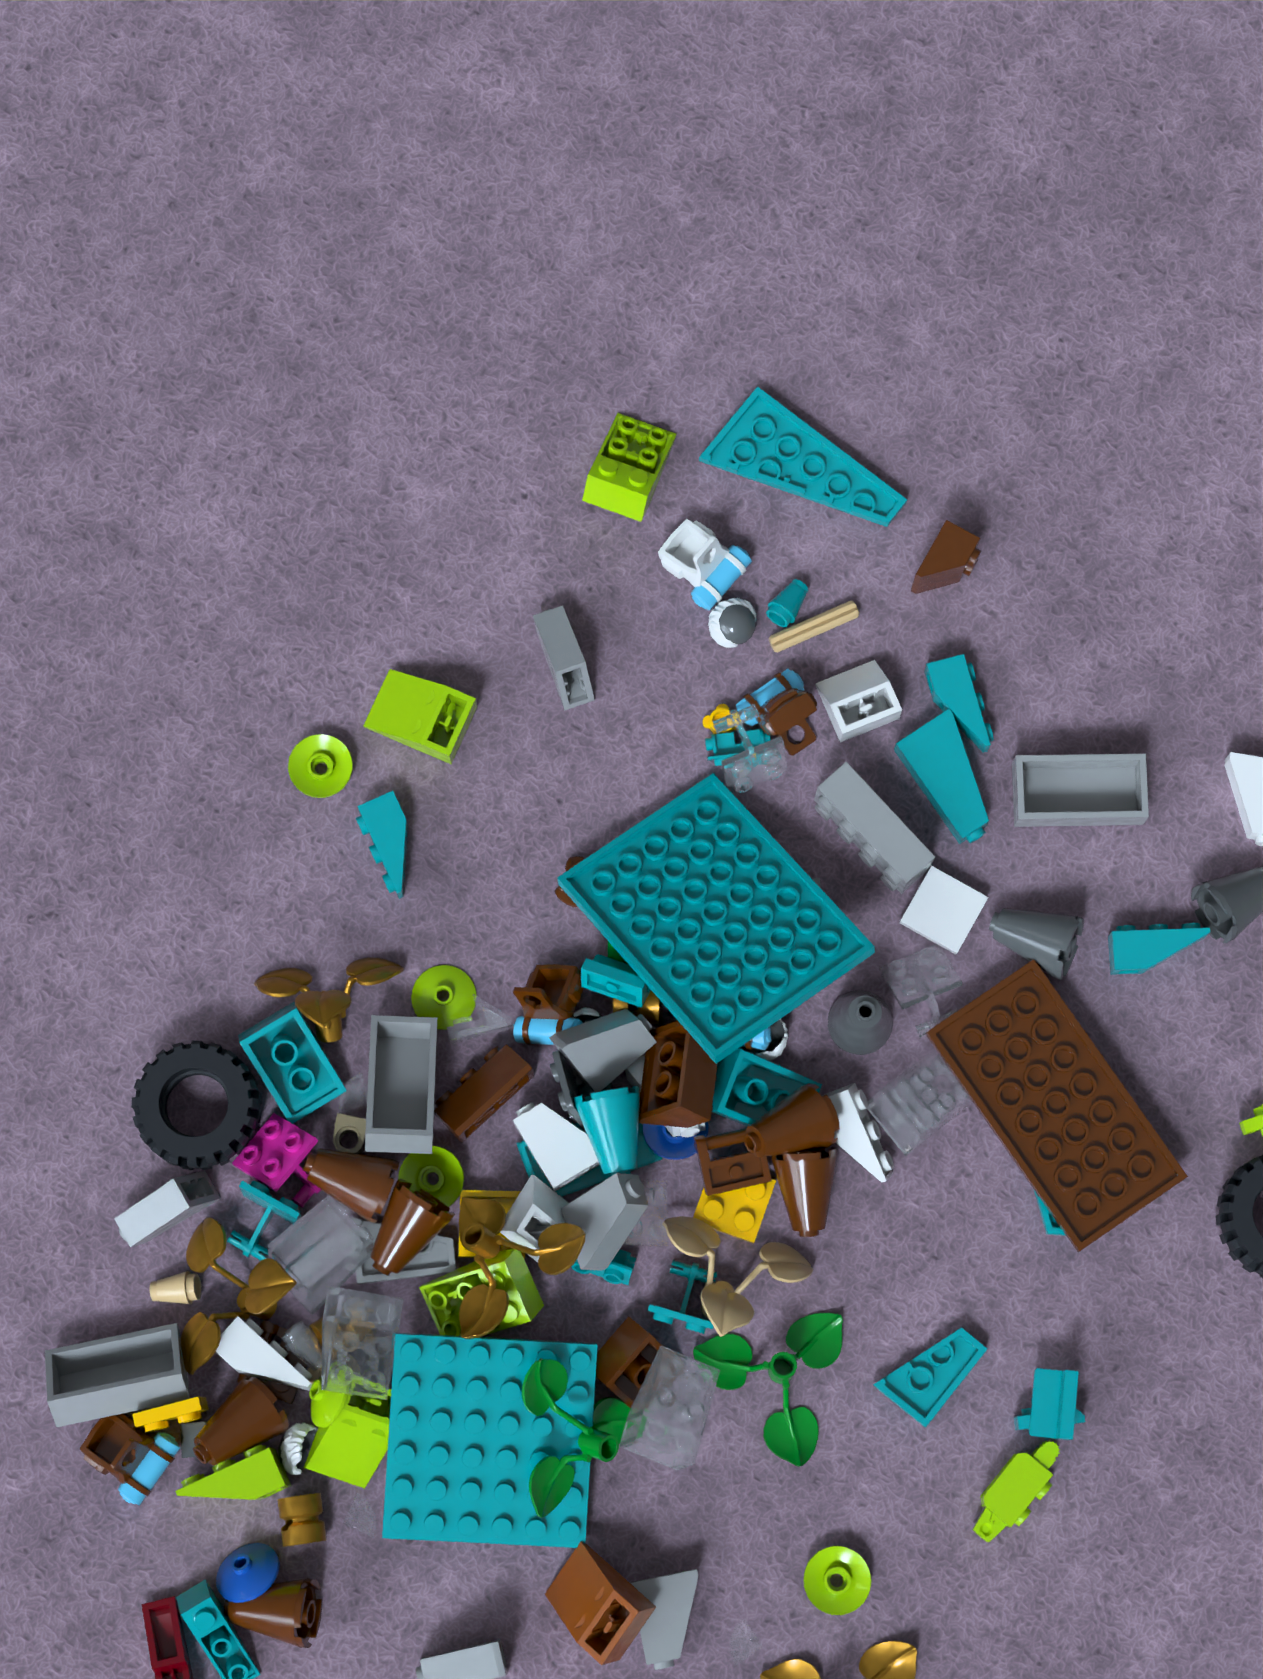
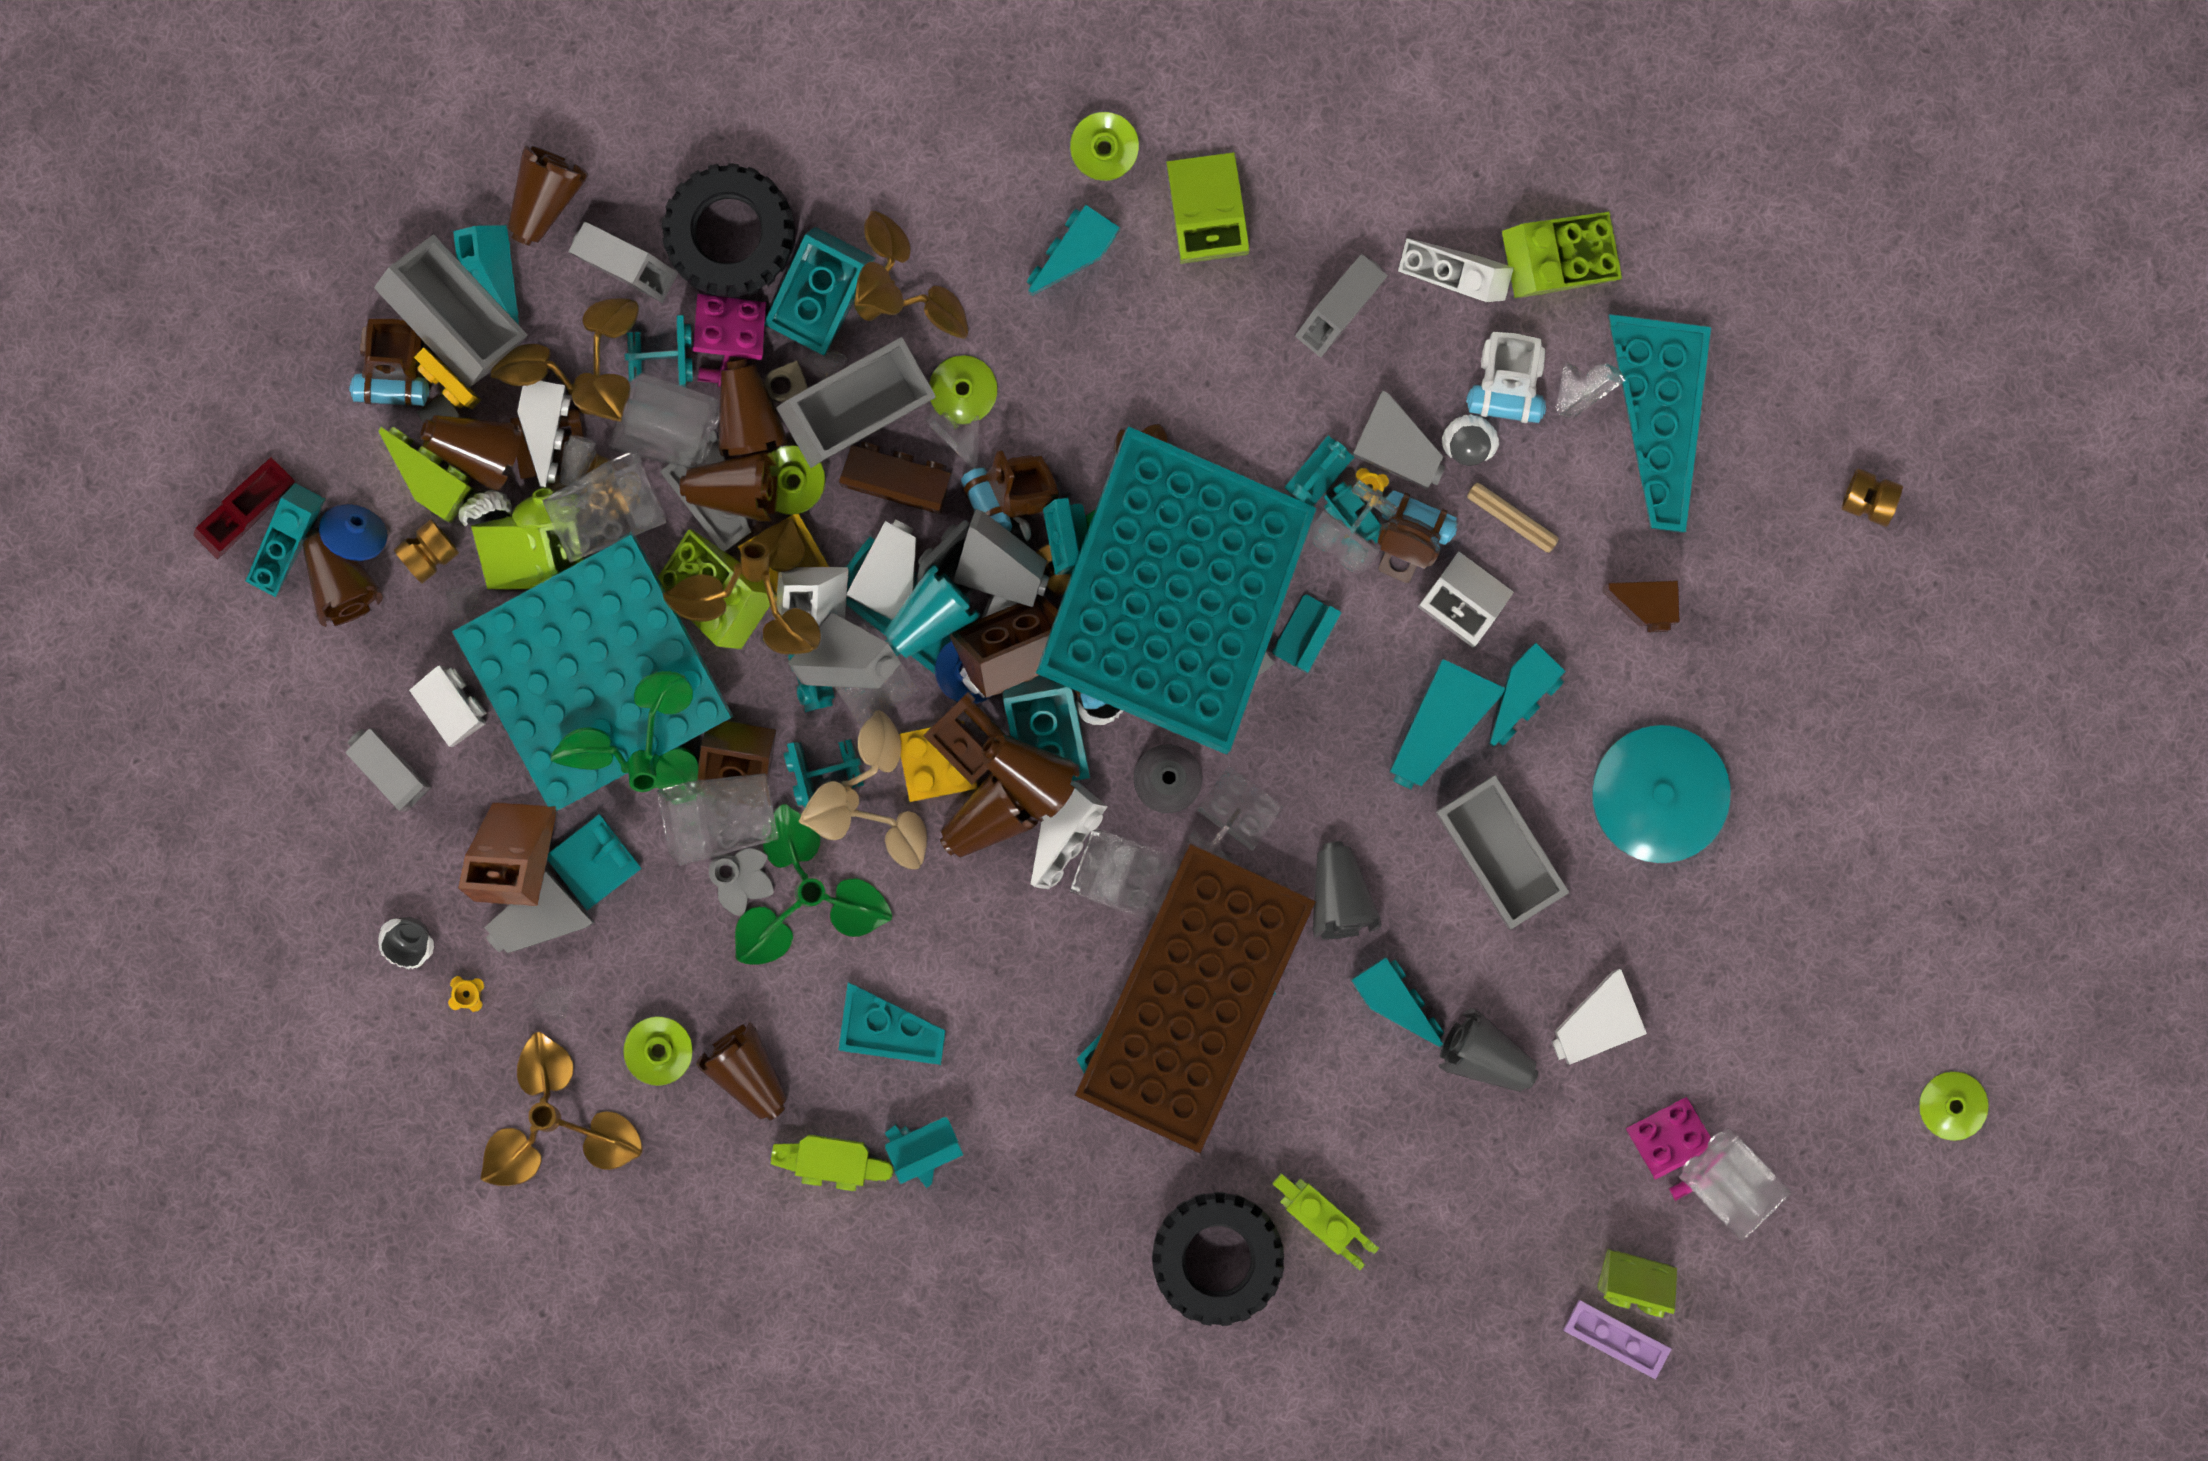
camera: 55 degrees right, 10 degrees up
(69, 1241) = (541, 193): none -> reddish brown cone
(91, 1318) = (487, 258): none -> teal slope
(177, 1288) = (559, 316): tan cone -> none
(441, 1581) = (448, 705): none -> white slope
(590, 553) = (1456, 270): none -> white slope
(646, 1538) = (593, 862): none -> teal plate
(685, 753) = (1319, 471): none -> teal hinge
(702, 679) = (1398, 445): none -> light grey slope
(738, 1420) = (744, 883): none -> light grey plate
(749, 516) = (1579, 393): none -> clear slope
(787, 603) = (1519, 480): teal cone -> none
(809, 840) = (1306, 633): none -> teal panel
(872, 828) = (1350, 684): light grey piece -> none
(898, 1516) = (745, 1072): none -> reddish brown cone
(943, 910) = (1316, 793): white tile -> none
(968, 342) = (1882, 503): none -> pearl gold wheel
(1104, 642) = (1661, 794): none -> teal dish

